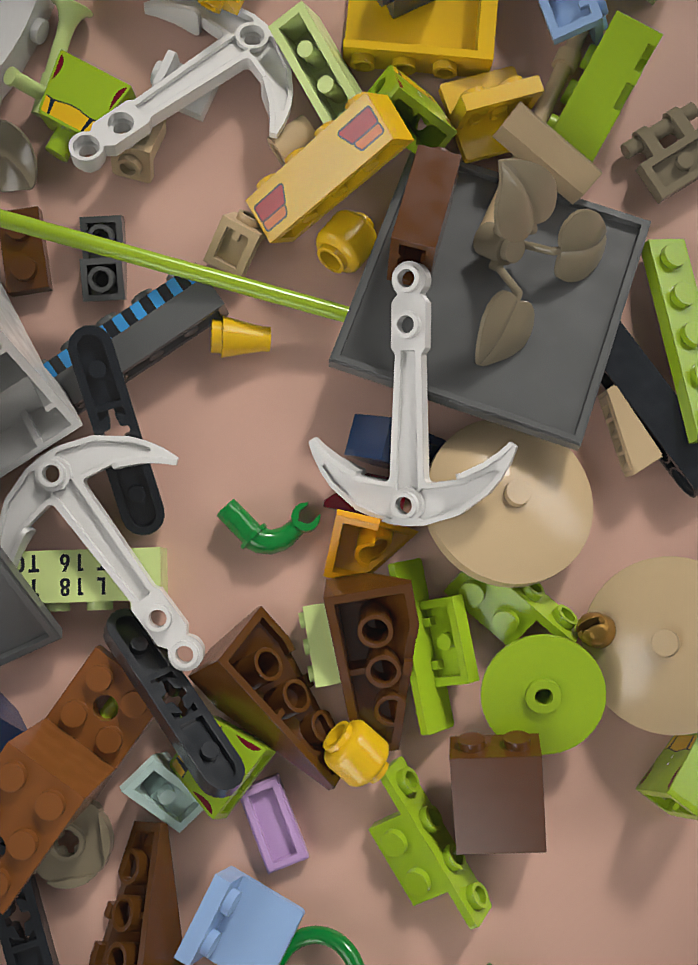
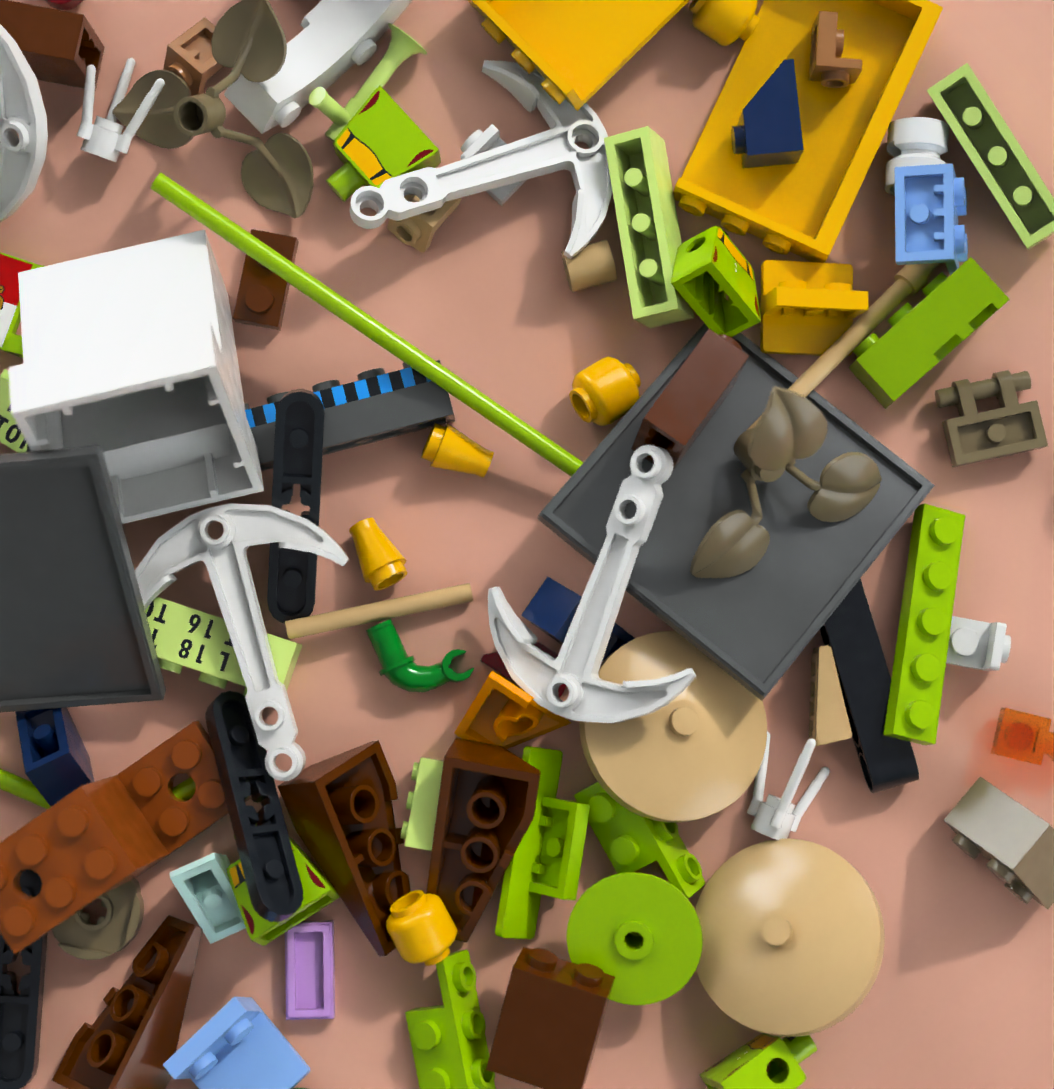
camera: 25 degrees right, 0 degrees up
(102, 276) = (333, 337): dark grey slope -> none
(205, 451) = (378, 557): none -> yellow cone
(221, 495) = (378, 611): none -> tan bar
(235, 242) = (489, 351): tan bracket -> none
(329, 167) = (611, 314): yellow brick -> none
(537, 142) = (848, 376): tan piece -> none
(598, 635) = (715, 899): pearl gold hinge -> none
(624, 545) = (777, 815): none -> white plant

